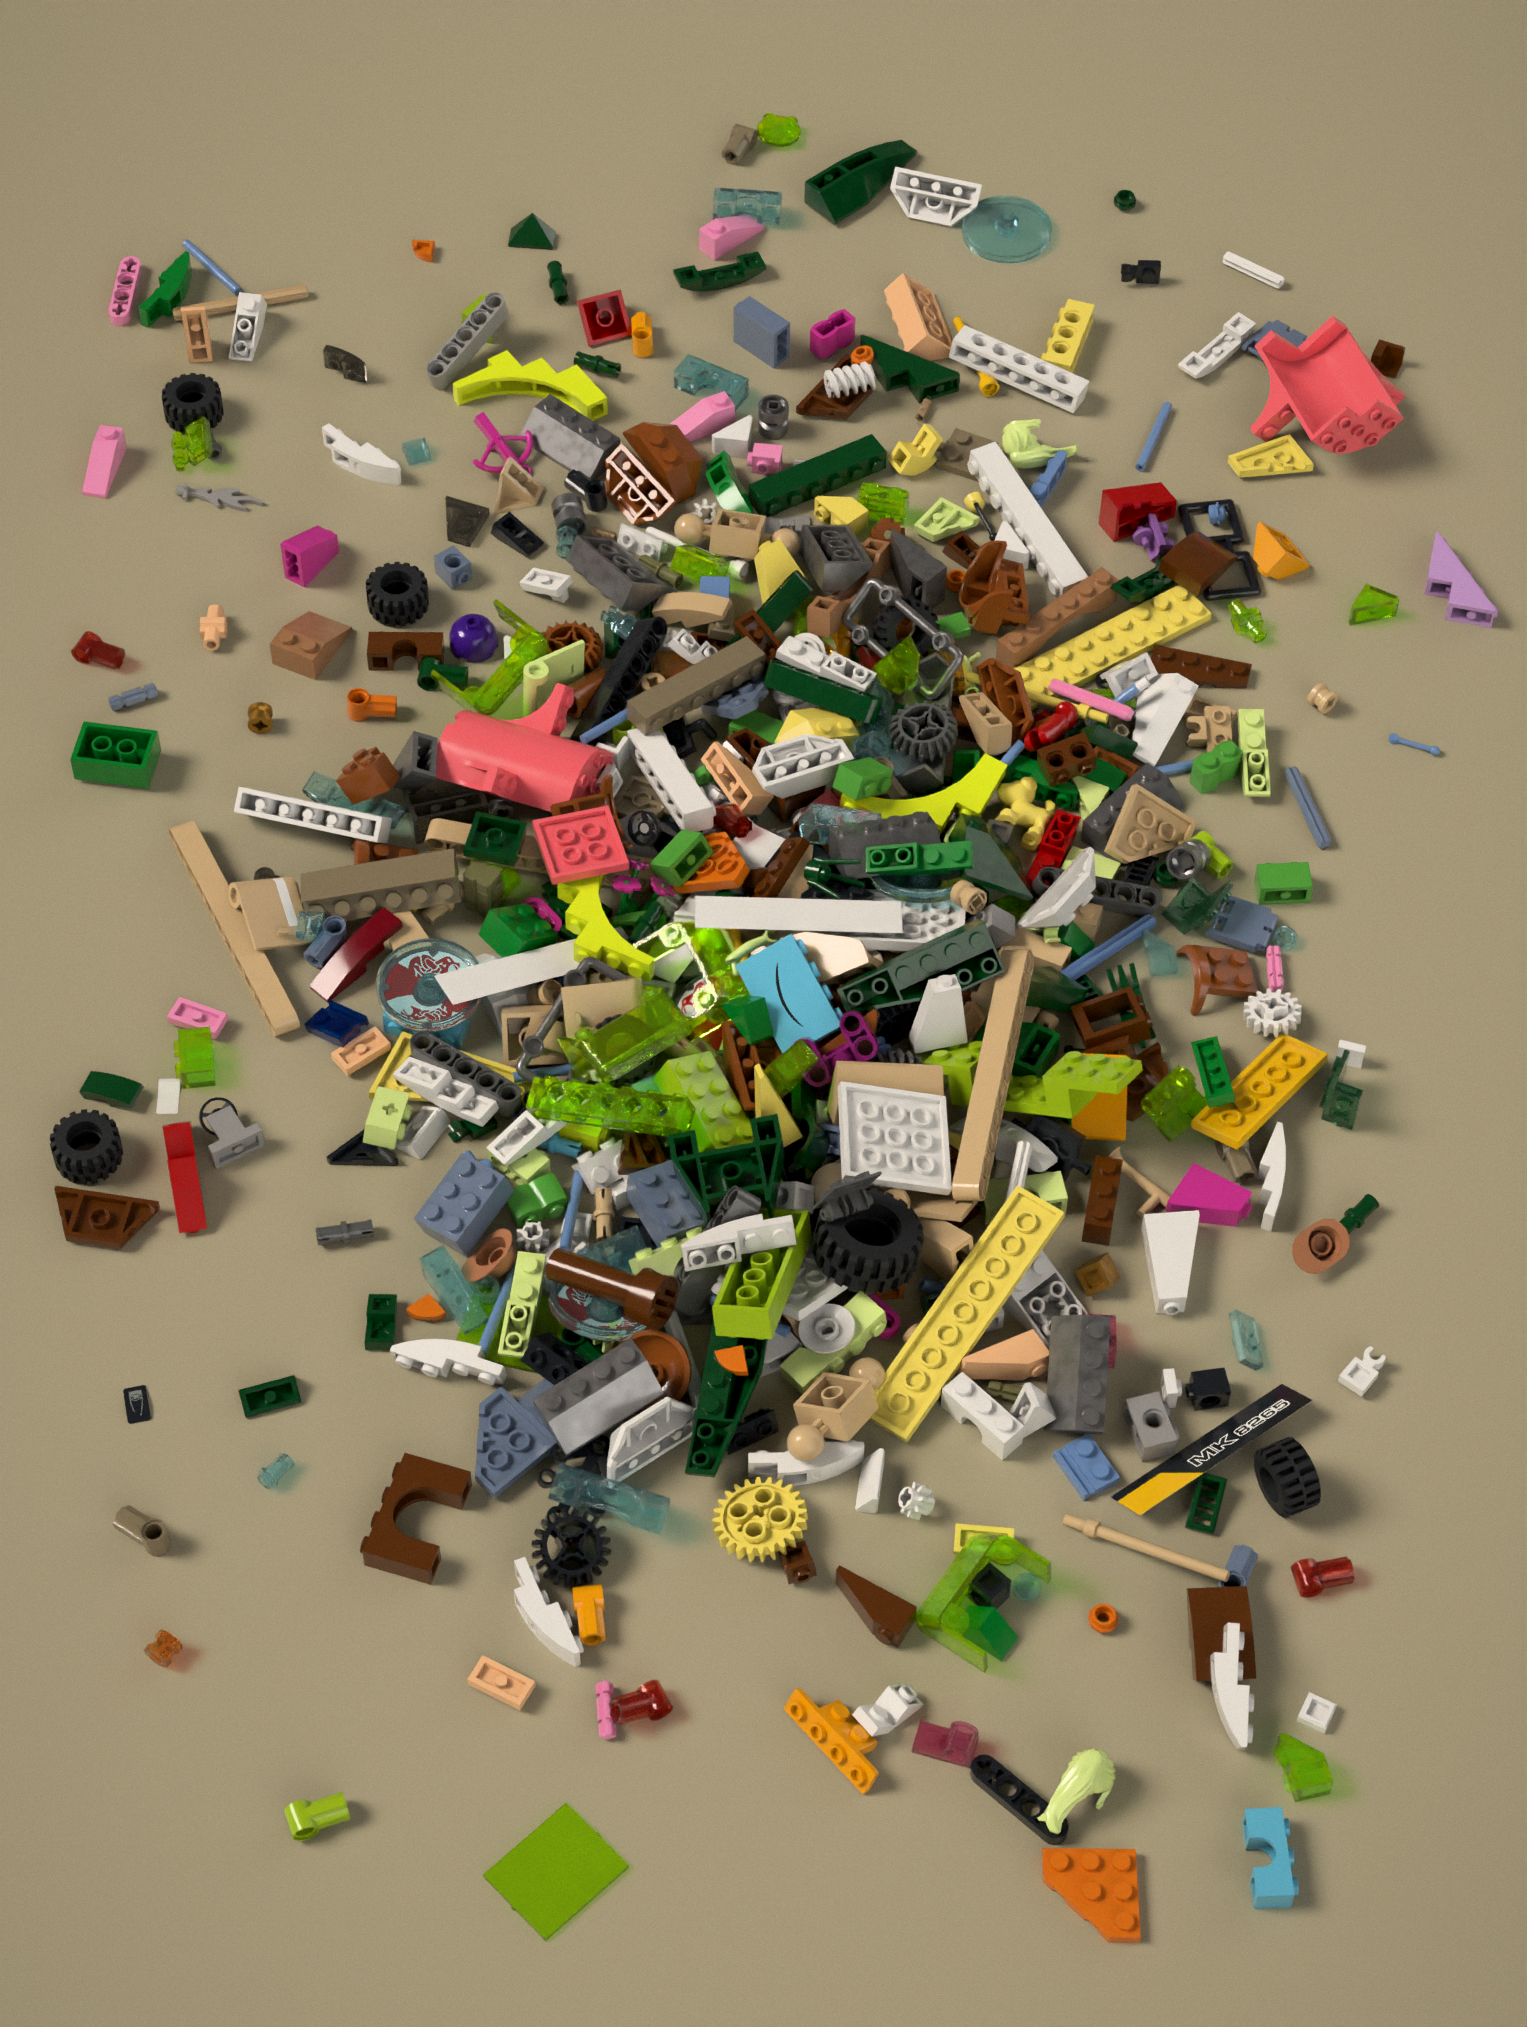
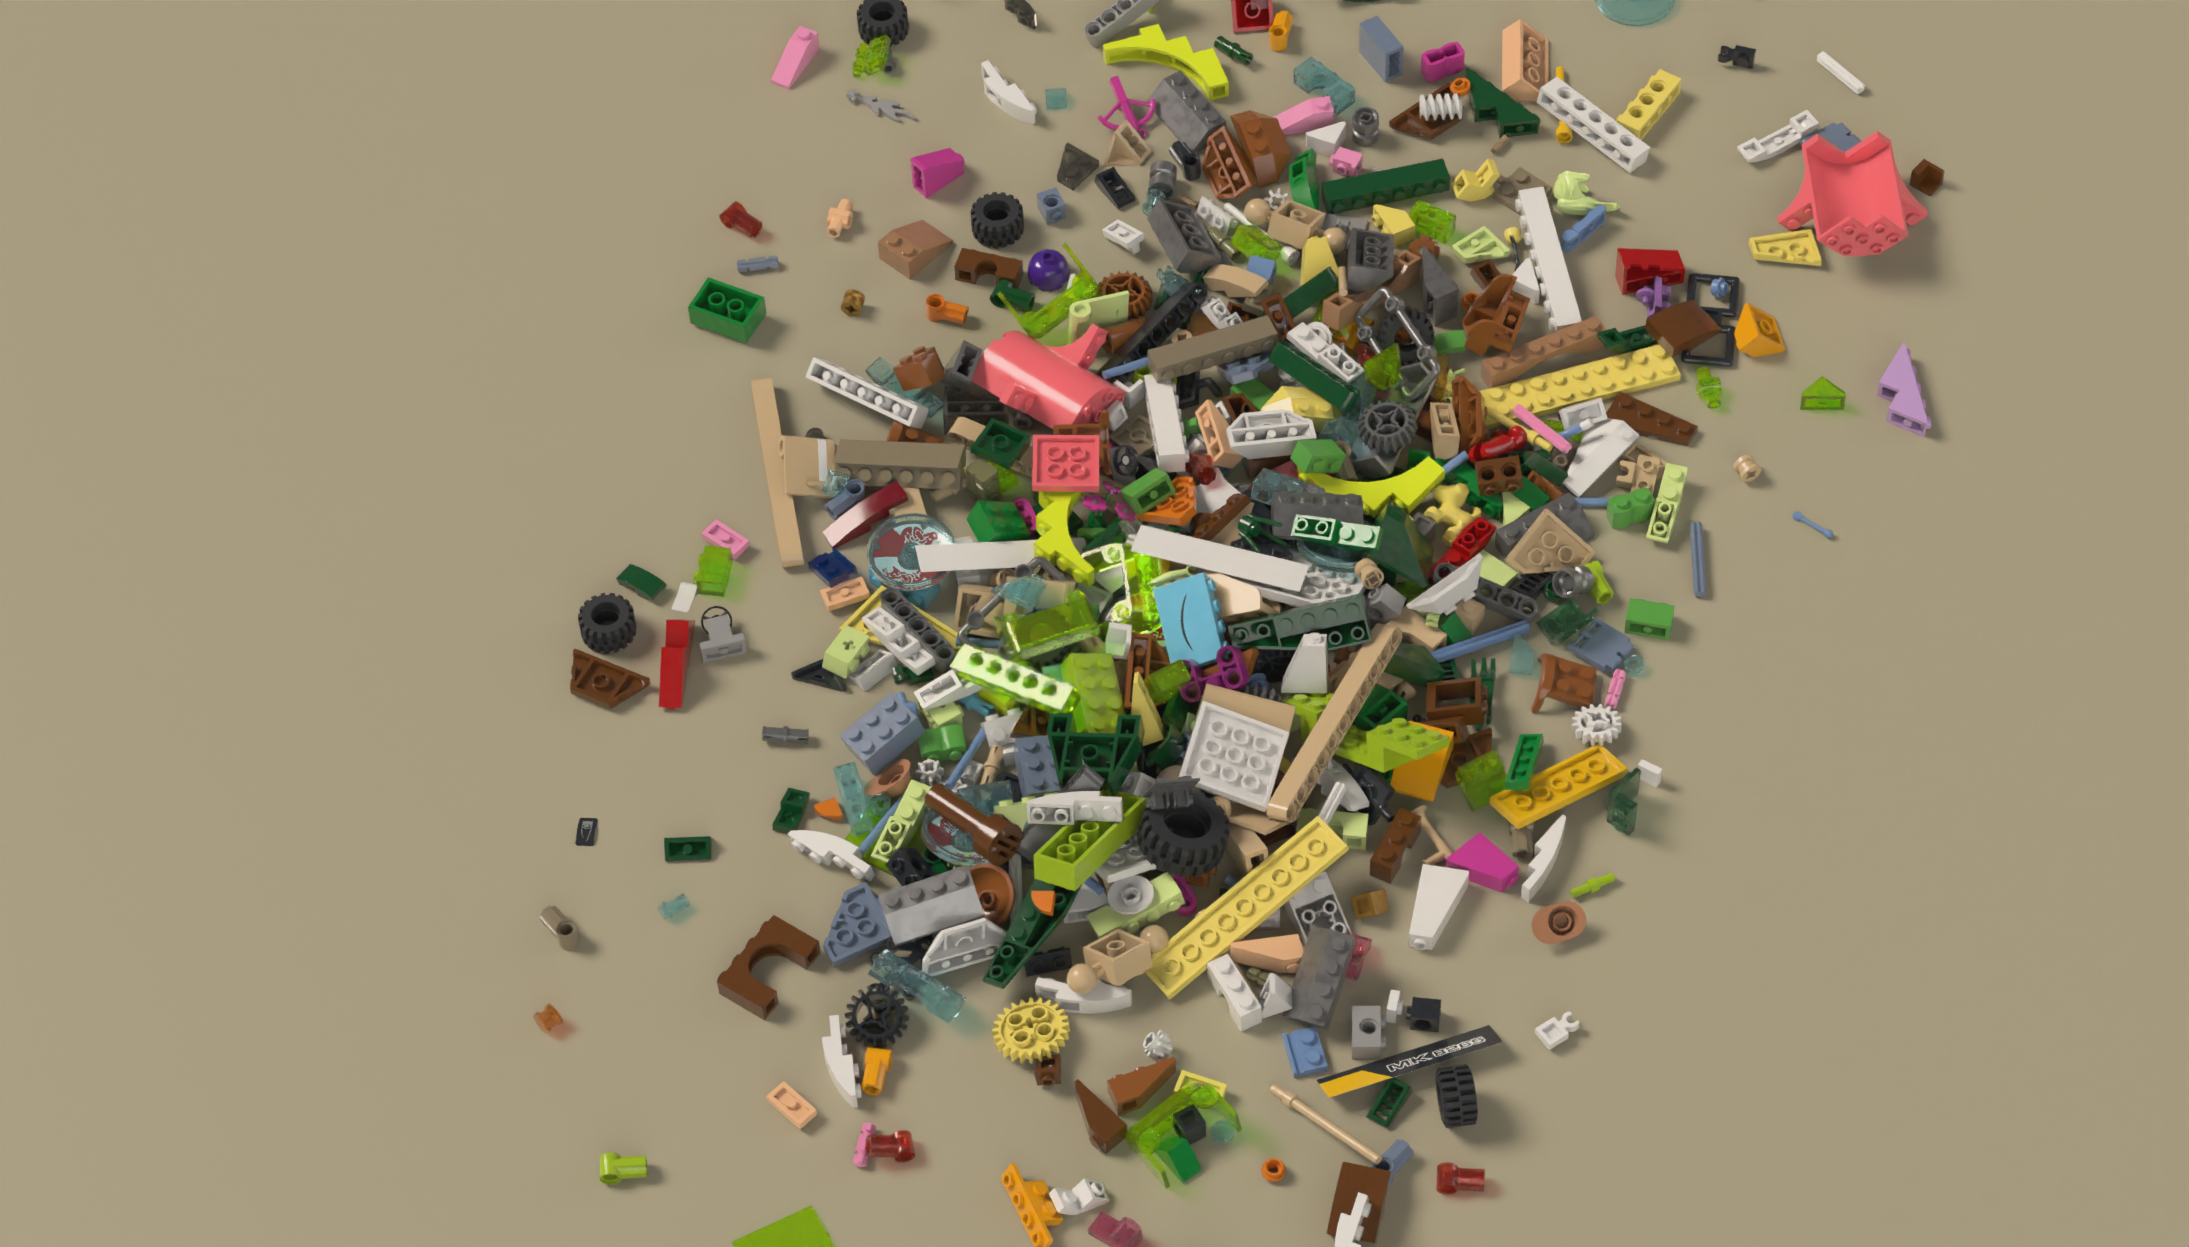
camera: 20 degrees right, 0 degrees up
(588, 999) = (1023, 591): none -> clear light blue slope
(711, 1033) = (1118, 640): none -> white panel
(750, 1017) = (1153, 634): green slope -> none
(817, 583) = (1342, 278): none -> tan bar
(870, 1482) = (1129, 1024): white slope -> none
(906, 1560) = (1137, 1087): none -> dark orange slope
(1153, 437) = (1692, 207): medium blue piece -> none
(1246, 1340) = (1470, 983): clear light blue plate -> none
(1336, 1194) = (1592, 885): none -> lime bar
(1355, 1216) = (1602, 905): dark green pin -> none

